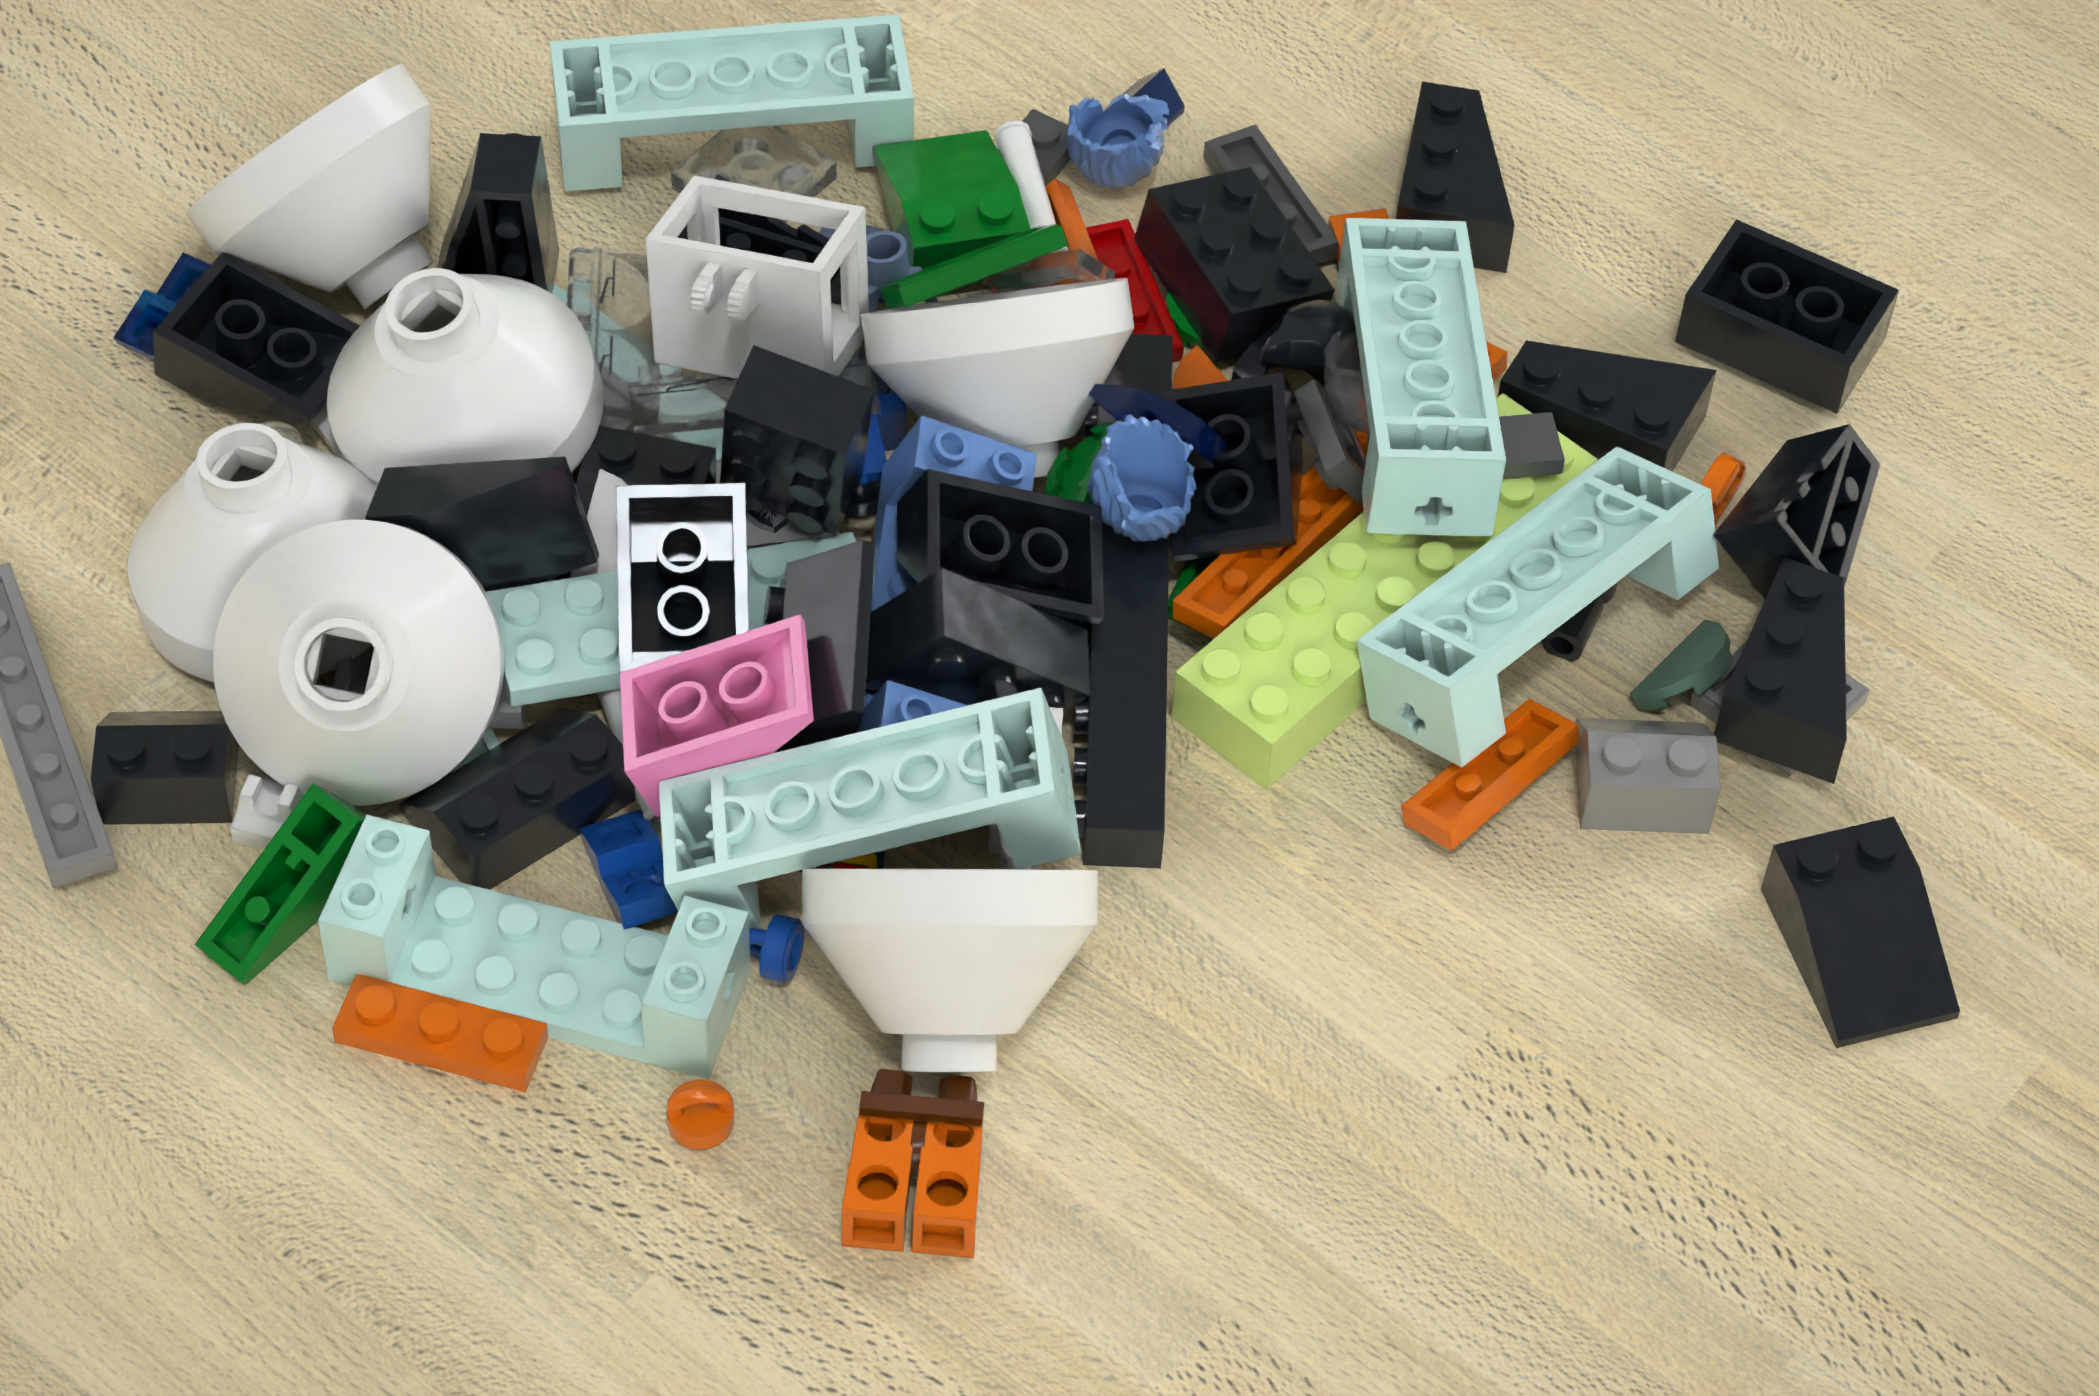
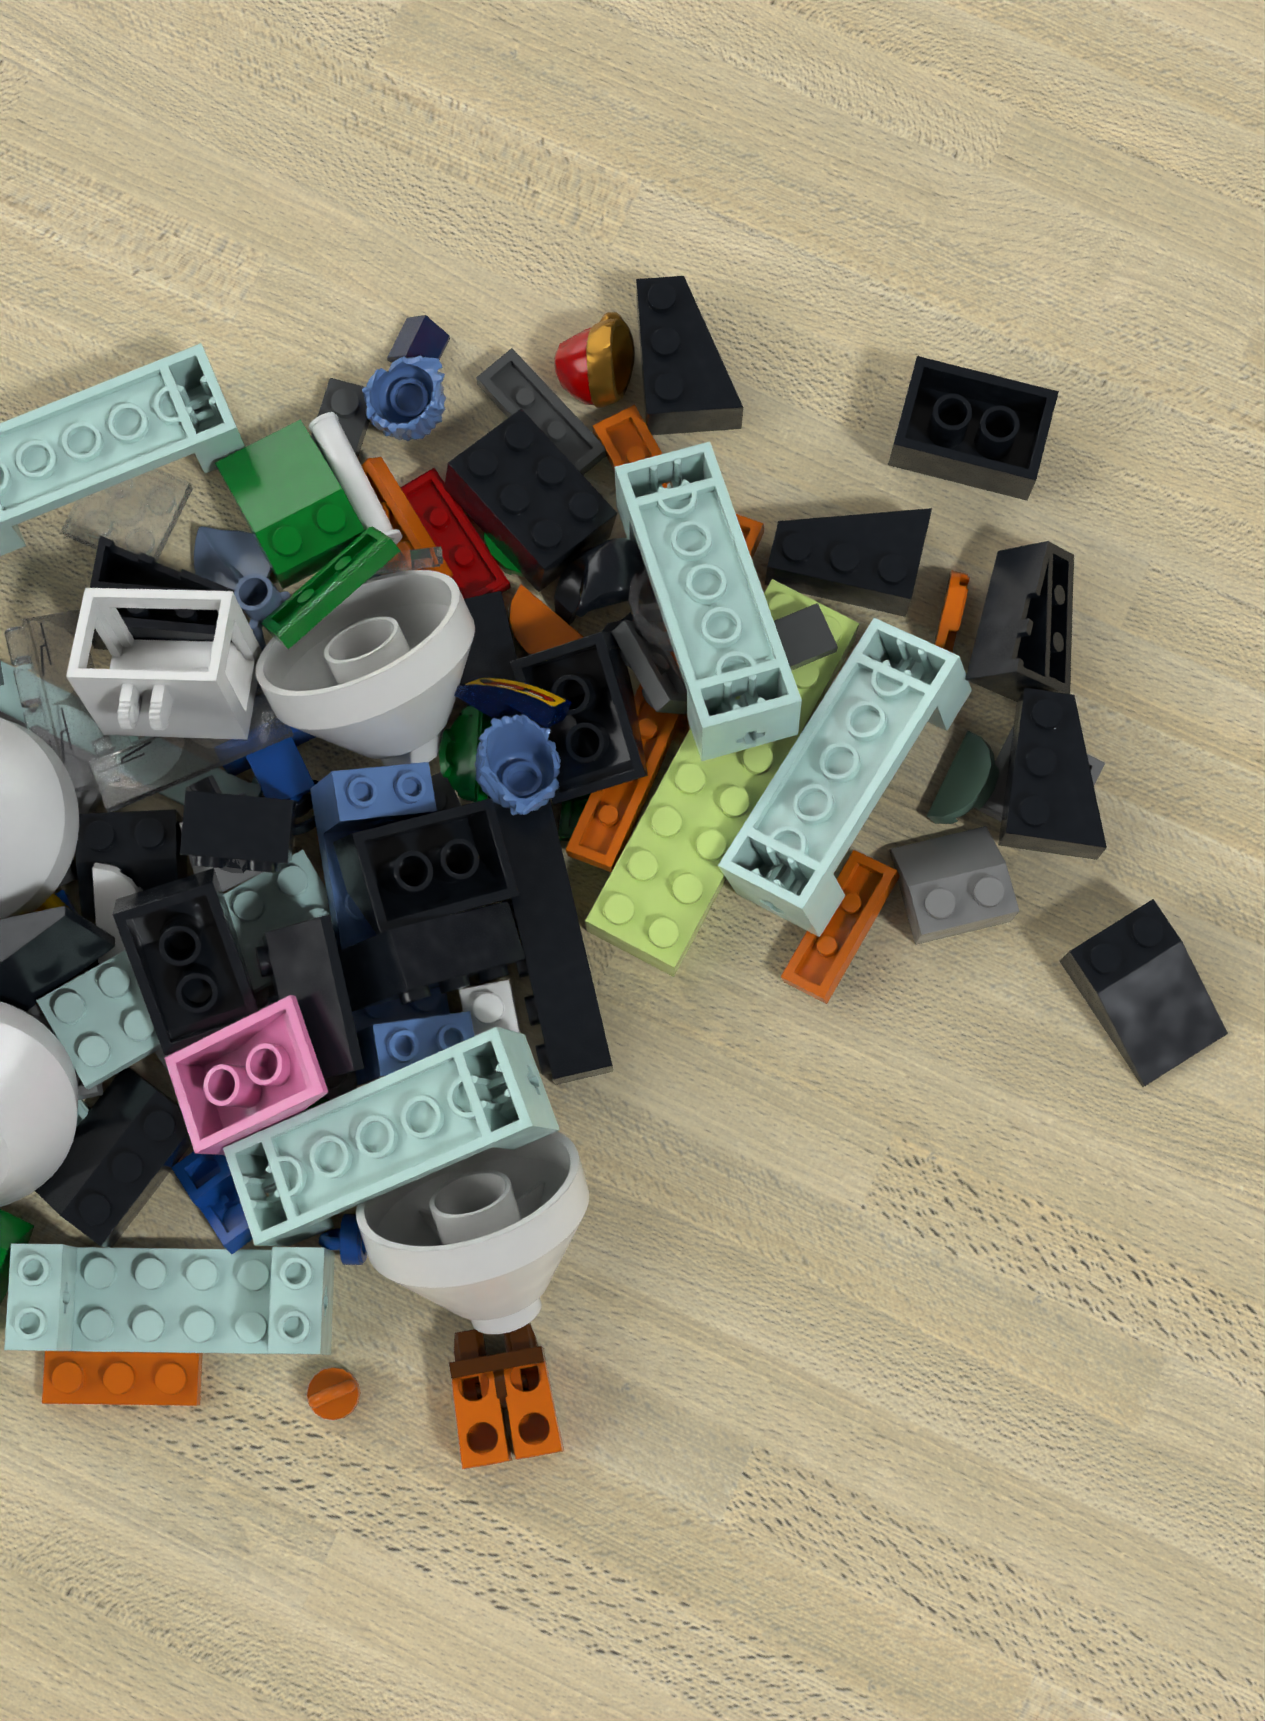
camera: 10 degrees left, 25 degrees up
(1353, 156) = (597, 362): none -> pearl gold piece

